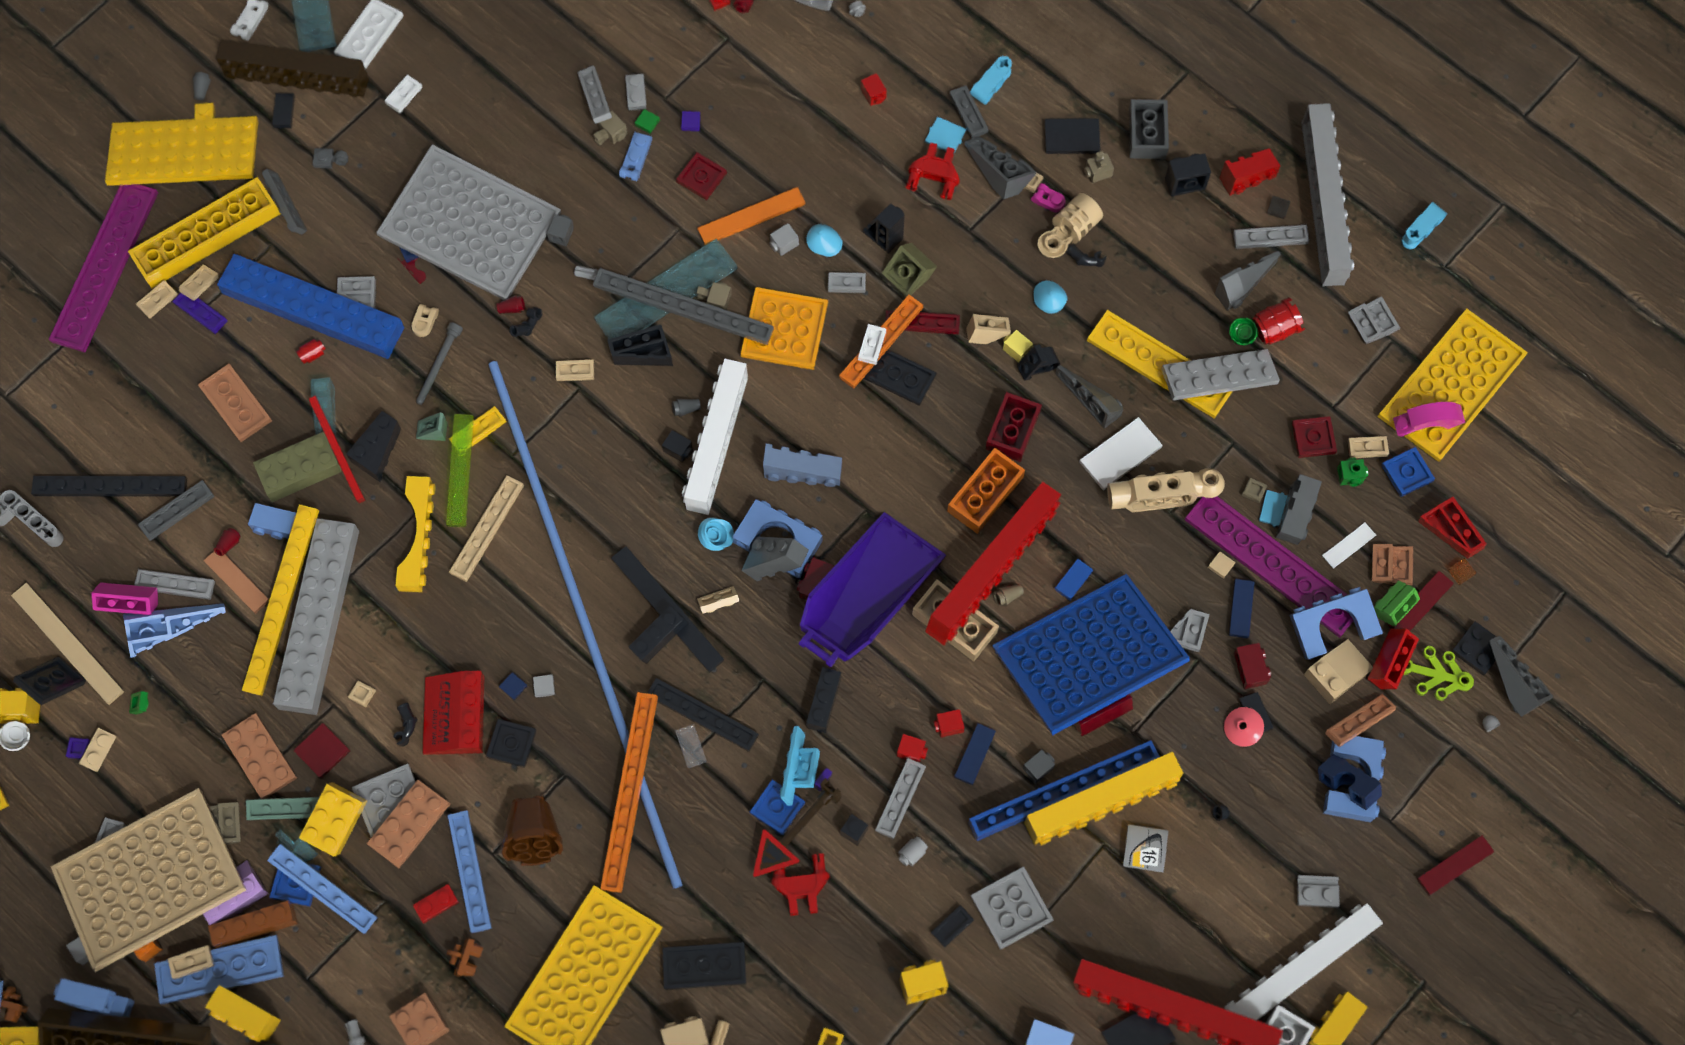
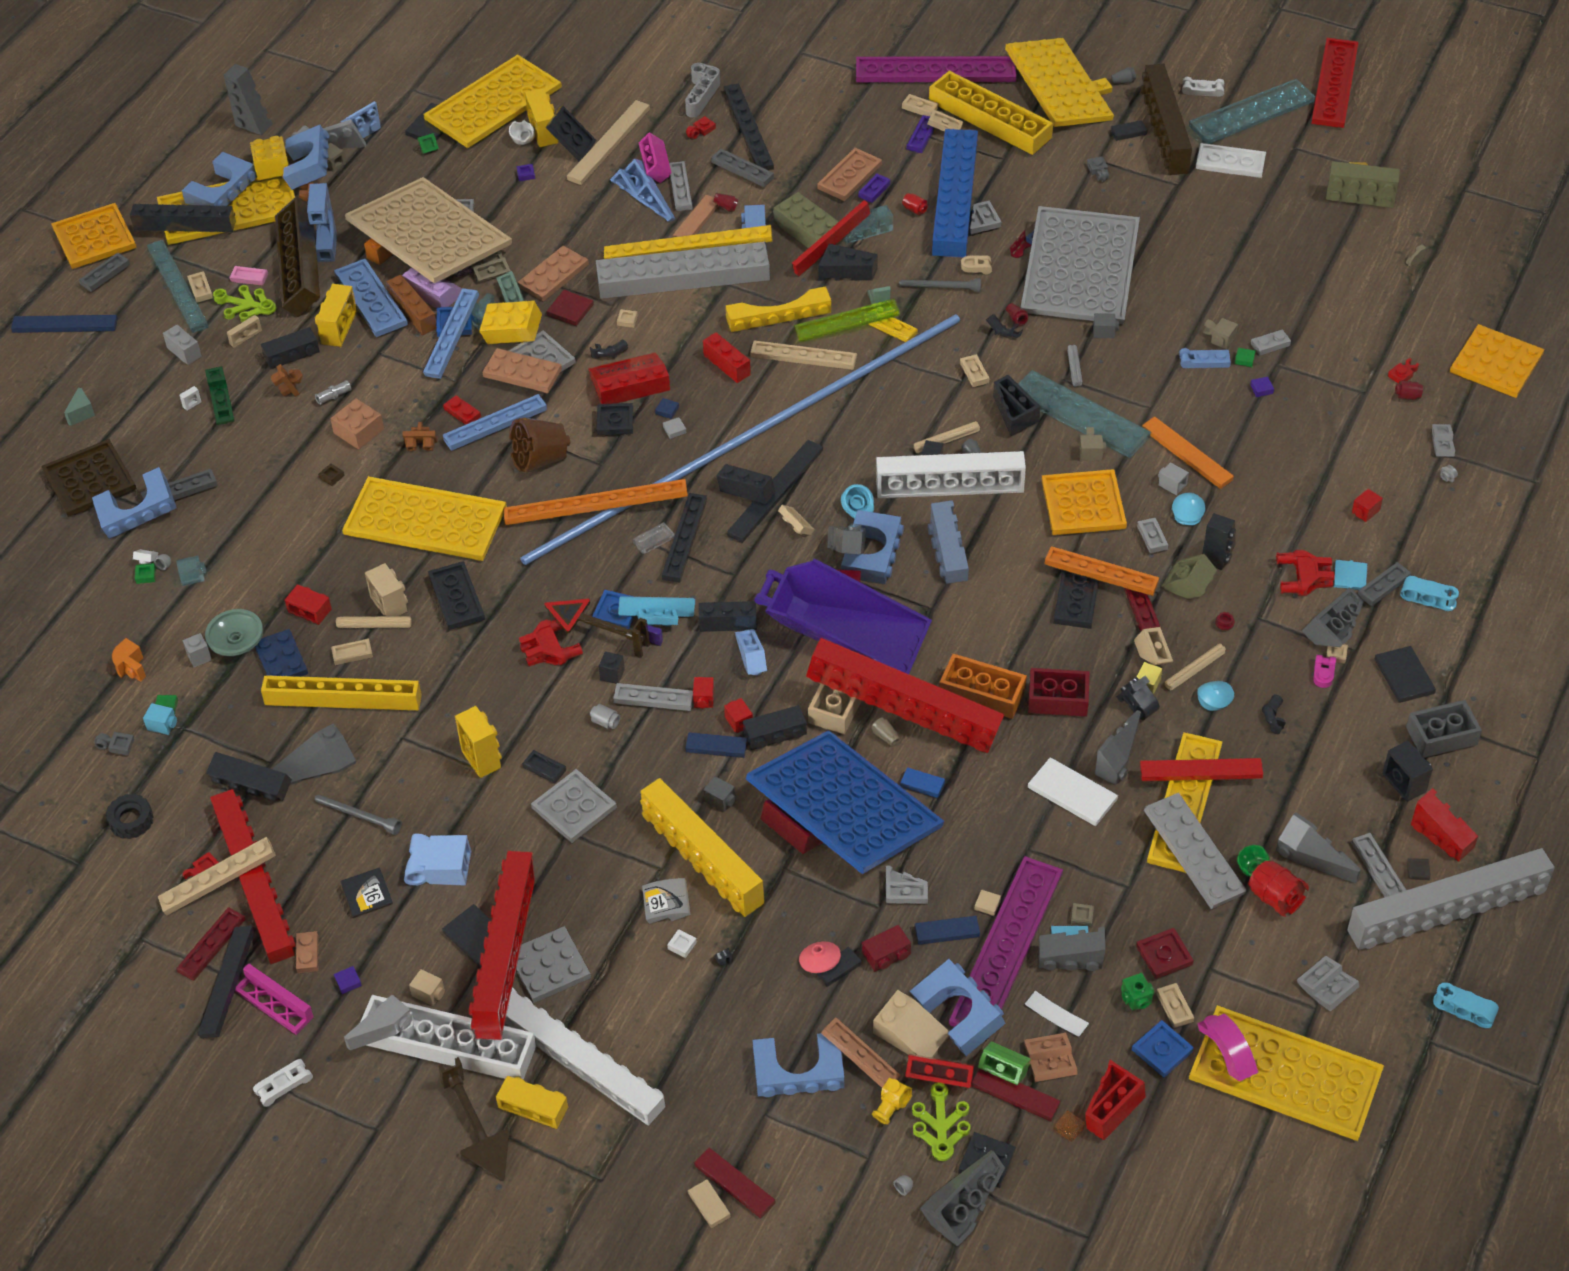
camera: 75 degrees right, 20 degrees down
(86, 533) = (701, 126): none -> red plate
(97, 749) = (527, 181): tan plate -> none
(138, 702) = (573, 192): green plate -> none
(191, 962) = (369, 274): tan plate -> none
(267, 384) = (874, 188): none -> dark purple plate
(284, 202) = (1043, 151): dark grey plate -> none
(403, 94) = (1183, 194): white plate -> none
(467, 605) = (726, 357): none -> red brick
(594, 94) = (1248, 309): light grey plate -> none
(654, 425) = (949, 435): none -> tan axle
(683, 306) = (1067, 422): dark grey plate -> none
(701, 176) = (1208, 406): dark red plate -> none
(872, 344) = (1091, 558): white plate -> none
(873, 689) = (751, 652): none -> light blue slope
(968, 258) = (1225, 621): none -> dark red plate
(975, 693) = (775, 727): none -> black brick
(1012, 302) = (1195, 666): none -> tan axle
(1018, 809) = (653, 766): blue brick -> none
(1070, 225) = (1303, 690): tan cylinder -> none
(1099, 167) = (1379, 700): dark tan brick -> none
(1136, 338) = (1201, 769): none -> red tile
(1164, 490) = (1042, 825): tan brick -> none
(1189, 970) = (550, 965): none -> light grey plate
(1198, 846) = (681, 943): none -> white plate
(1317, 891) = (668, 1060): light grey plate -> none
(1363, 789) = (789, 1052): dark blue arch -> none
(1409, 706) = (893, 1097): none -> yellow connector
(1471, 892) = (709, 1203): none -> tan tile

